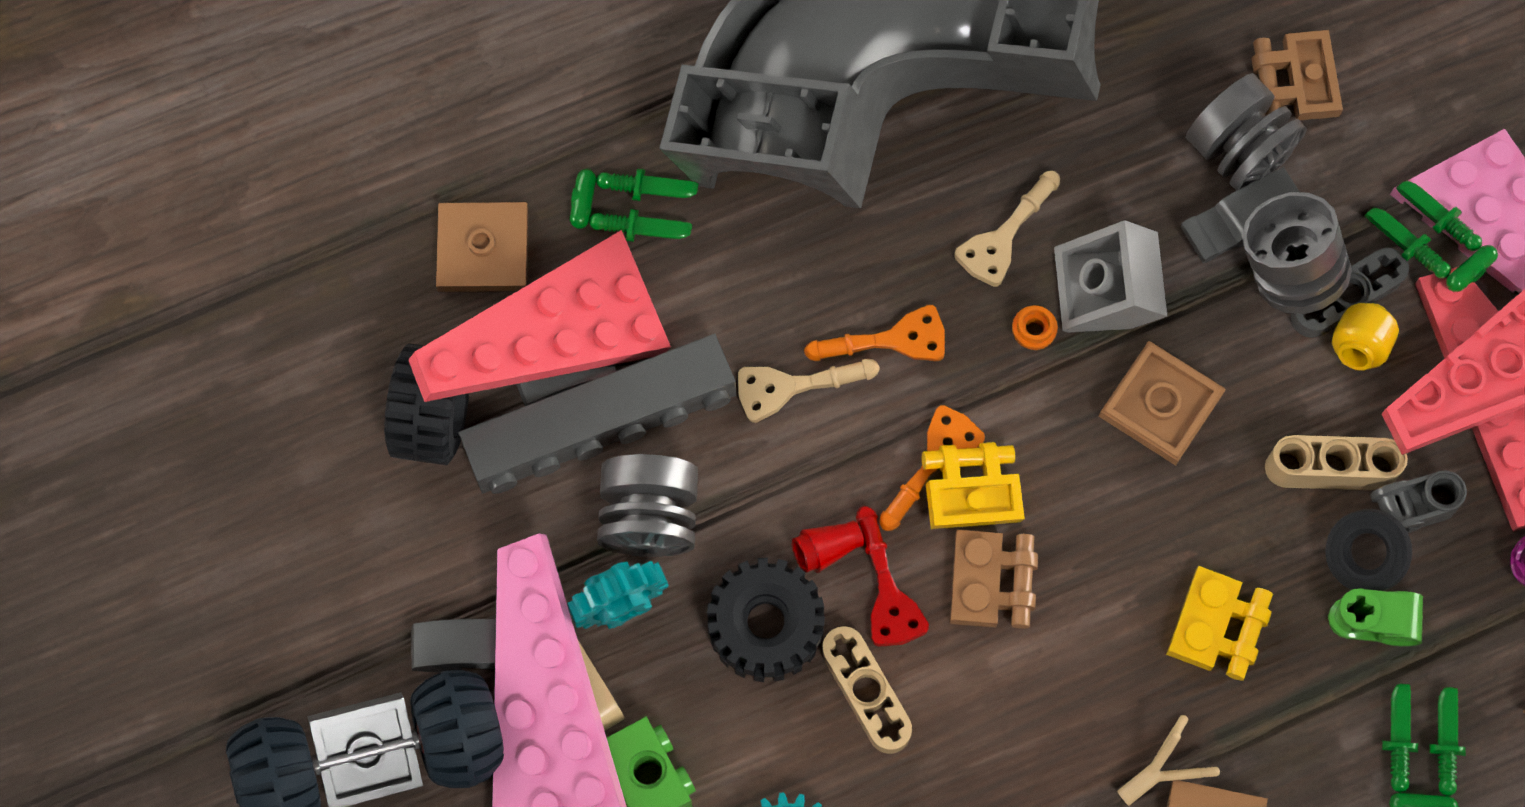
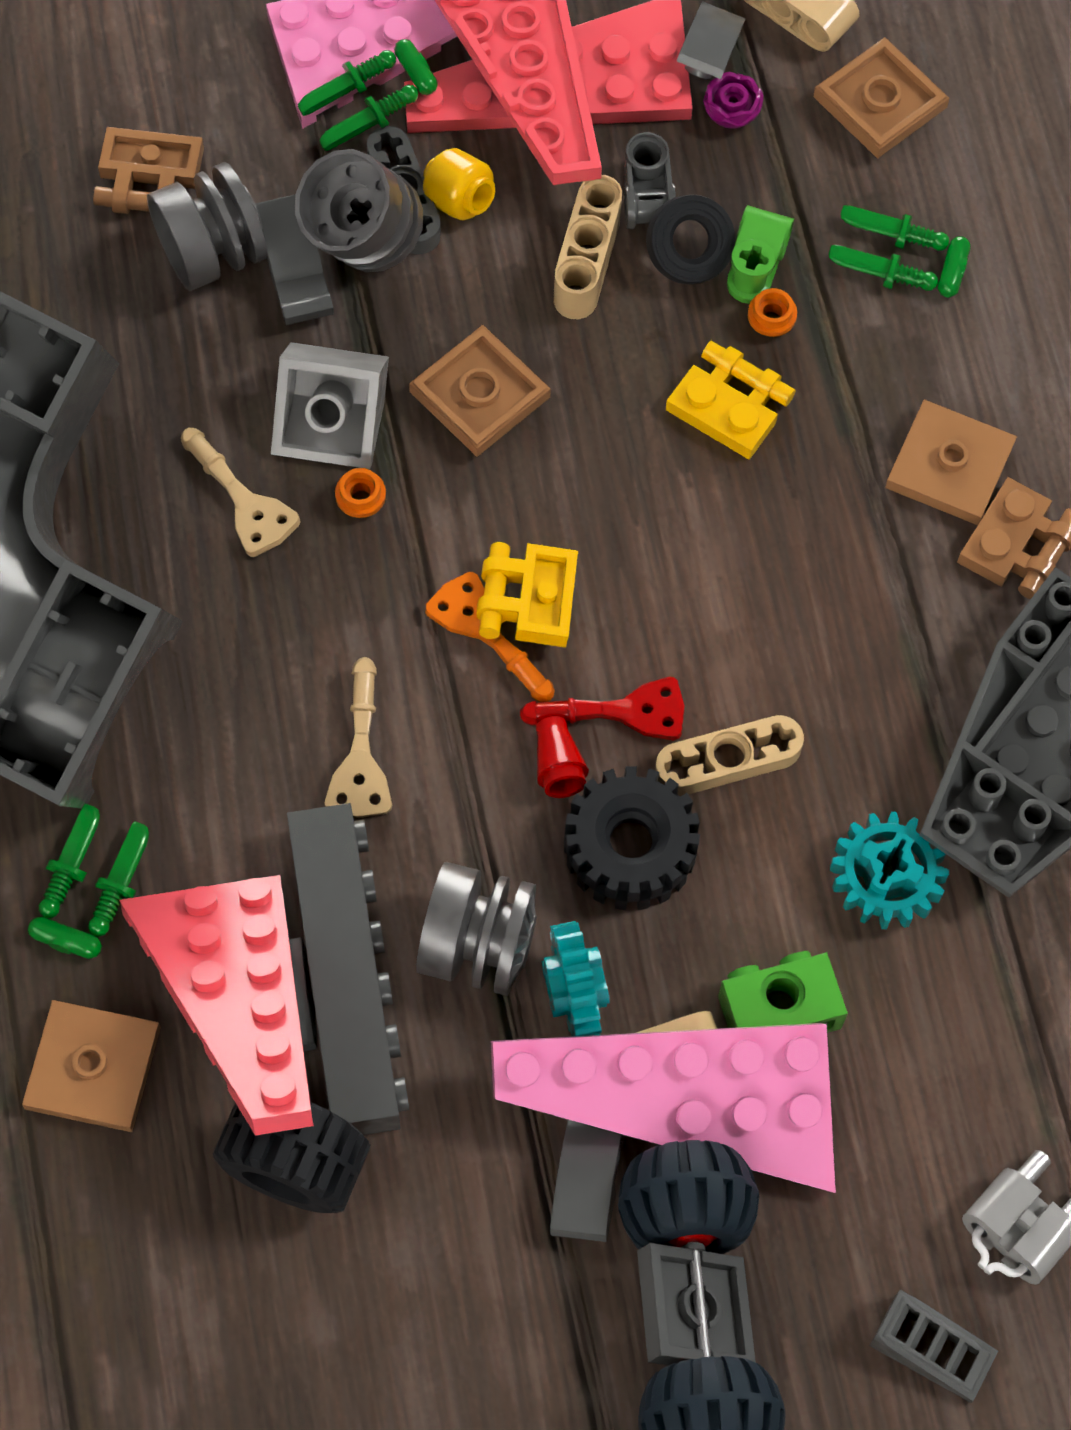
camera: 80 degrees left, 5 degrees down
(893, 339) = (333, 639): orange piece -> none
(977, 579) = (628, 616): medium nougat plate -> none
(1152, 774) = (875, 493): tan plant -> none
(1328, 633) = (774, 301): none -> orange plate

